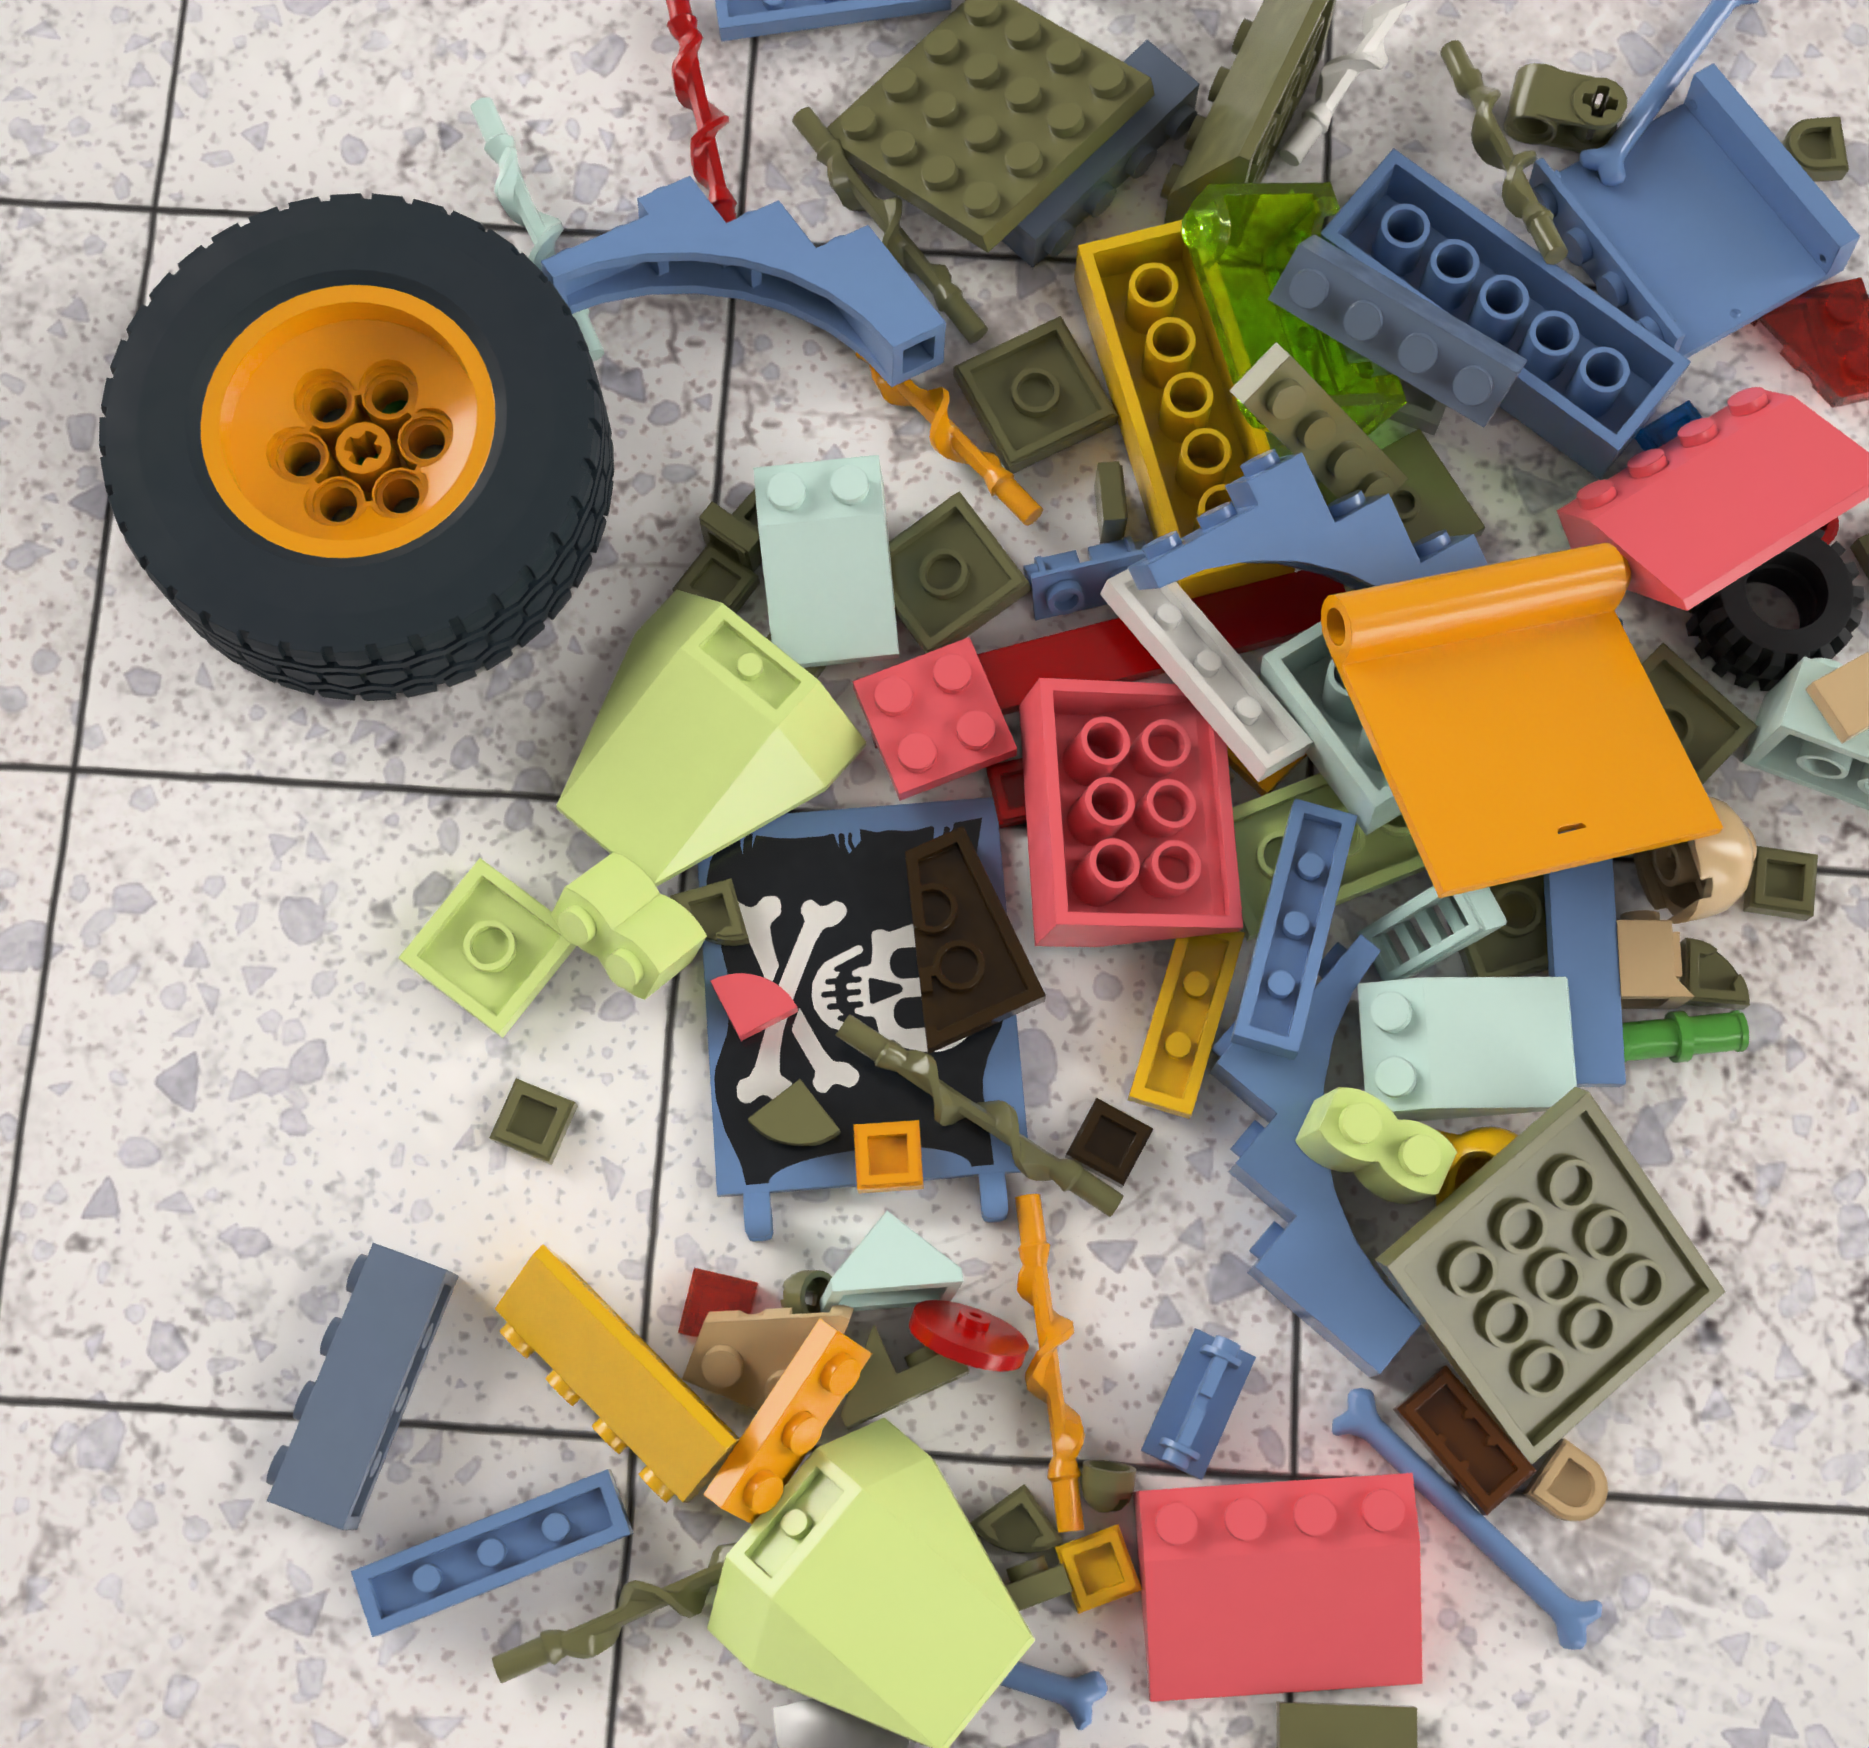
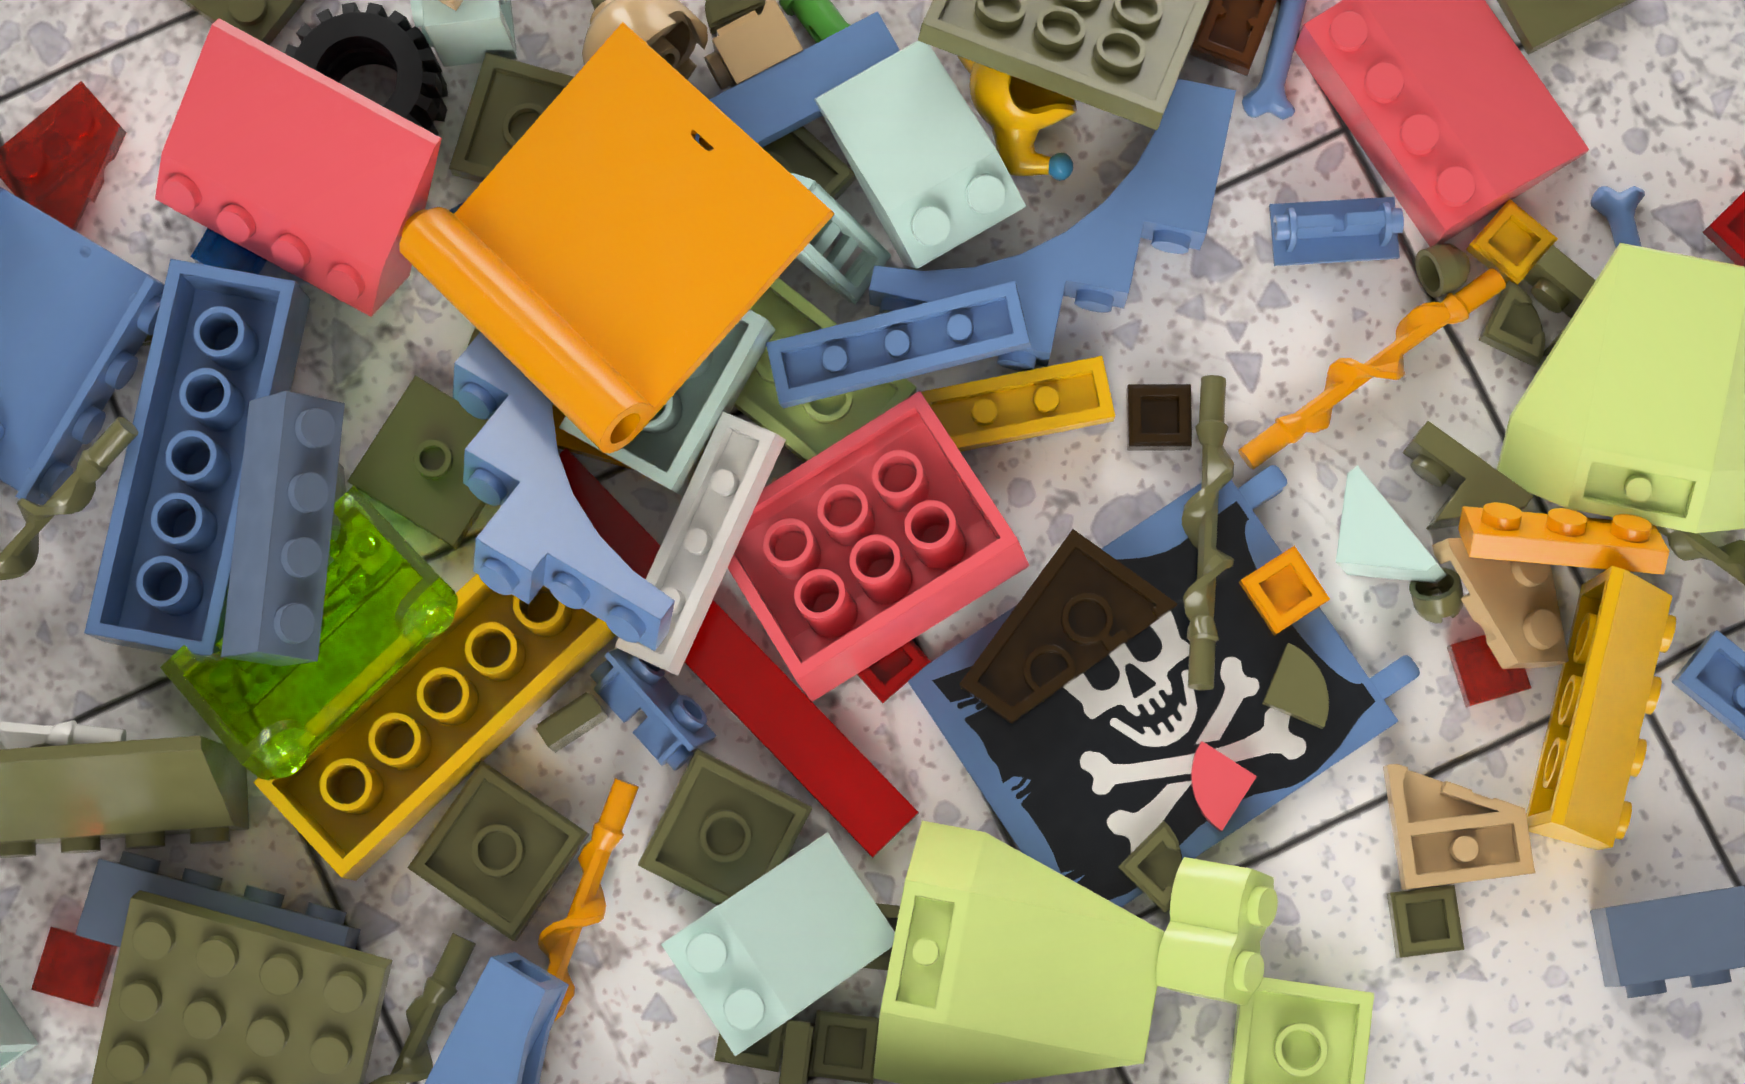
camera: 115 degrees left, 5 degrees up
(593, 1186) = (1453, 834): none -> tan wing
(934, 718) = (870, 767): coral plate -> none
(968, 1335) = (1397, 438): red piece -> none
(1124, 32) = (74, 967): none -> clear red tile
(1314, 424) = (438, 540): olive plate -> none
(1387, 1155) = (1056, 179): yellowish green brick -> none

